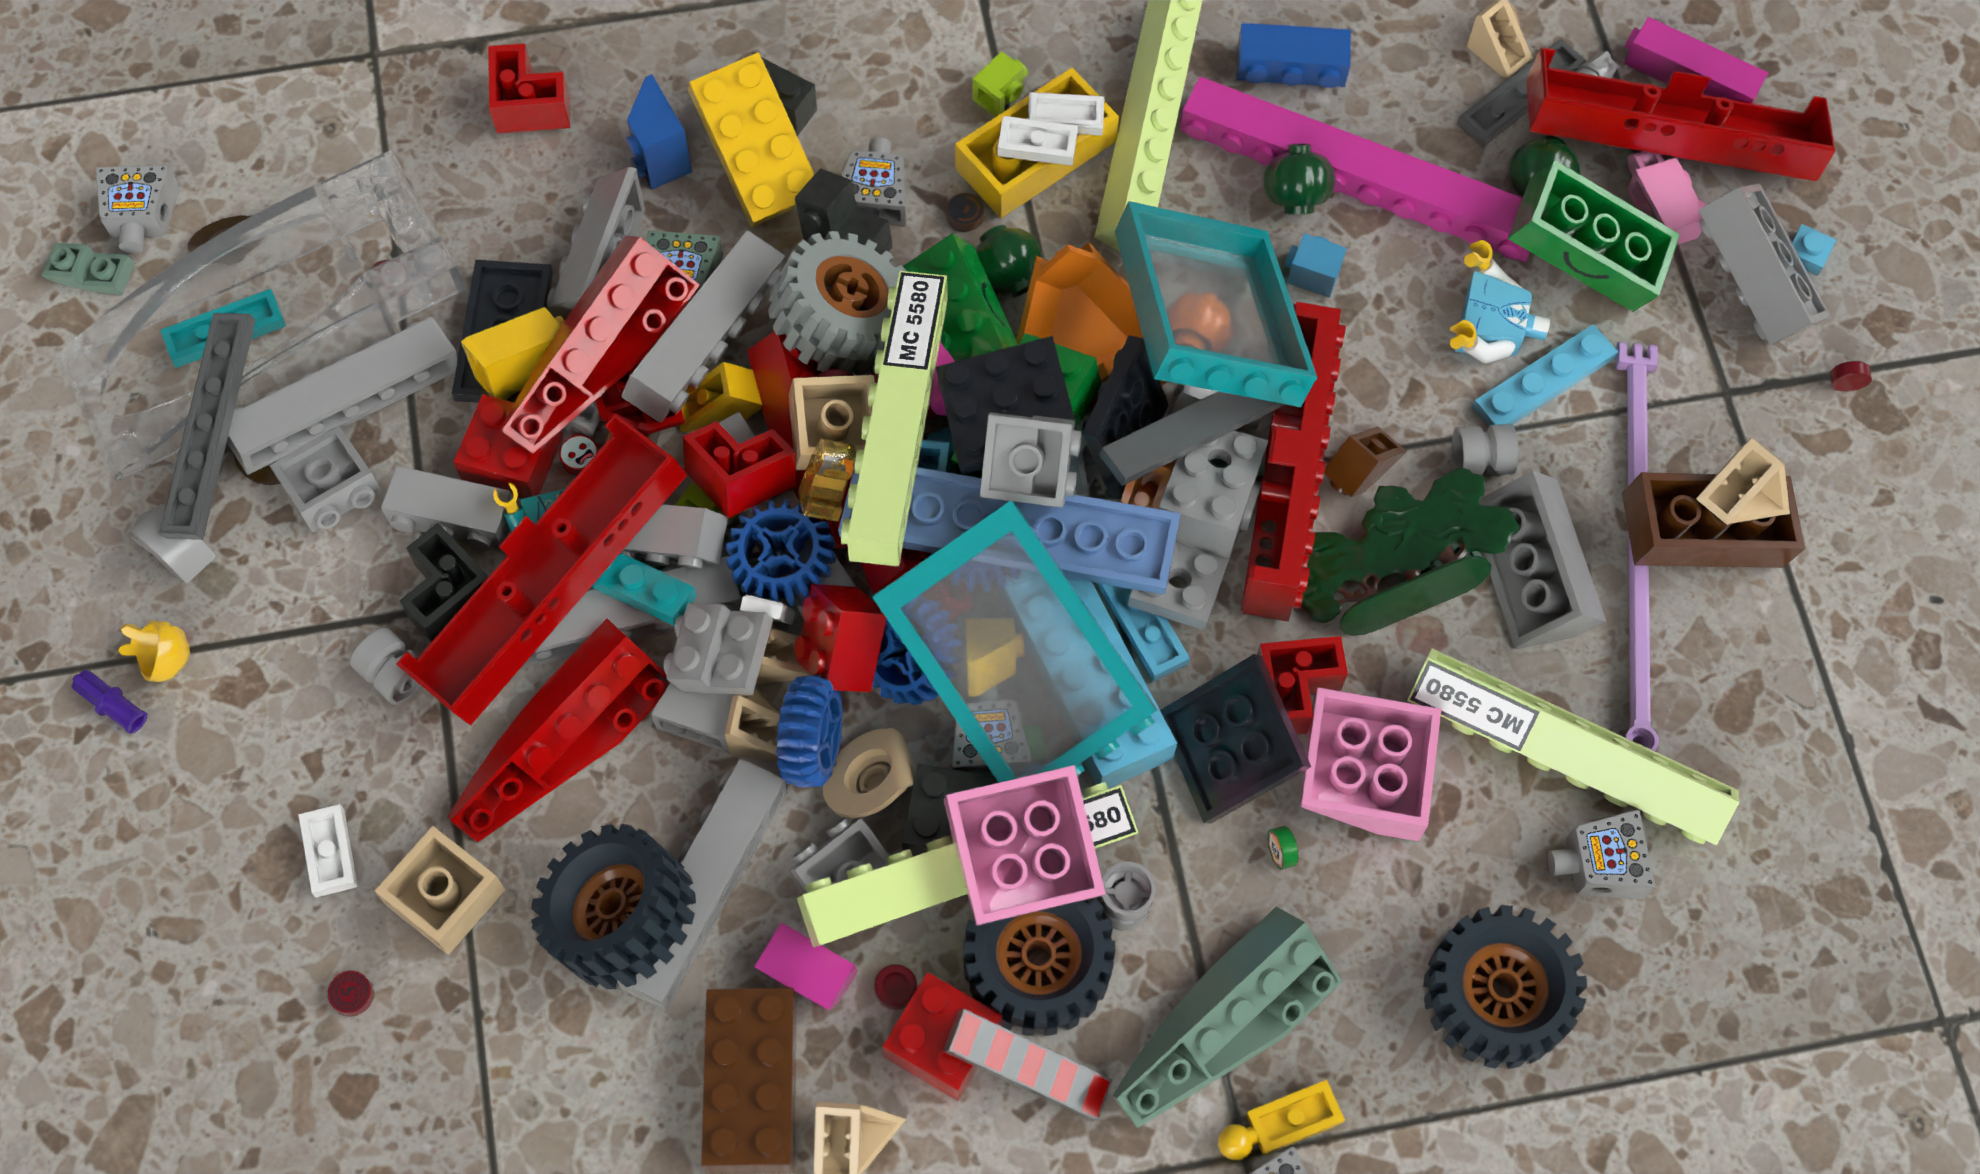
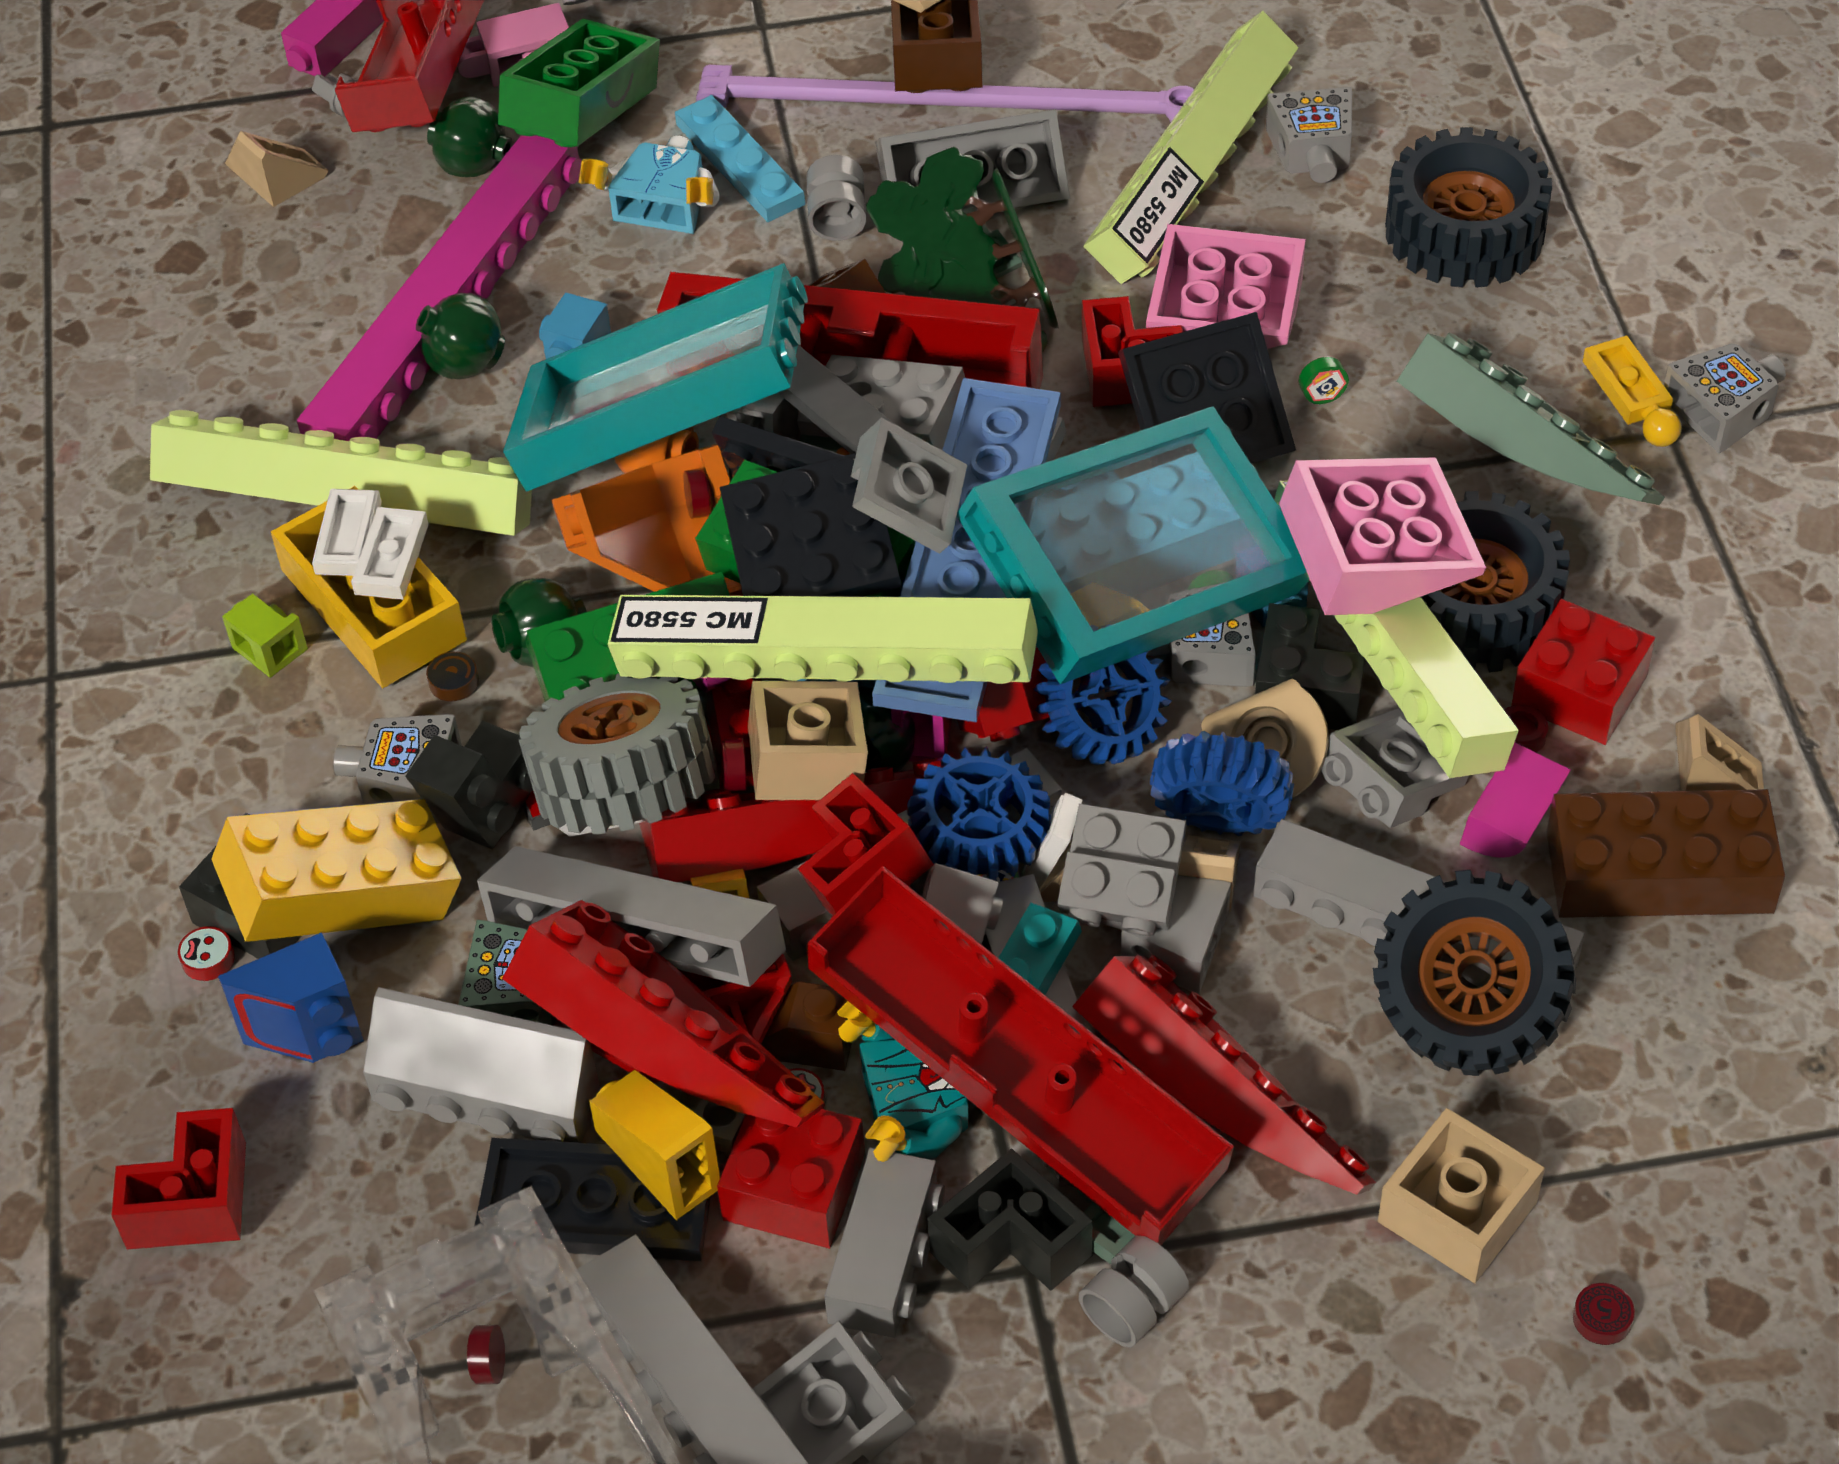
camera: 85 degrees left, 15 degrees down
(328, 850) = (1407, 1354): white plate -> none
(827, 479) = (894, 735): clear yellow leg -> none
(840, 636) = (1096, 745): red brick -> none
(1027, 1065) = (1612, 582): tile -> none
(1293, 55) = (269, 347): blue brick -> none
(1509, 100) = (351, 159): dark grey tile -> none

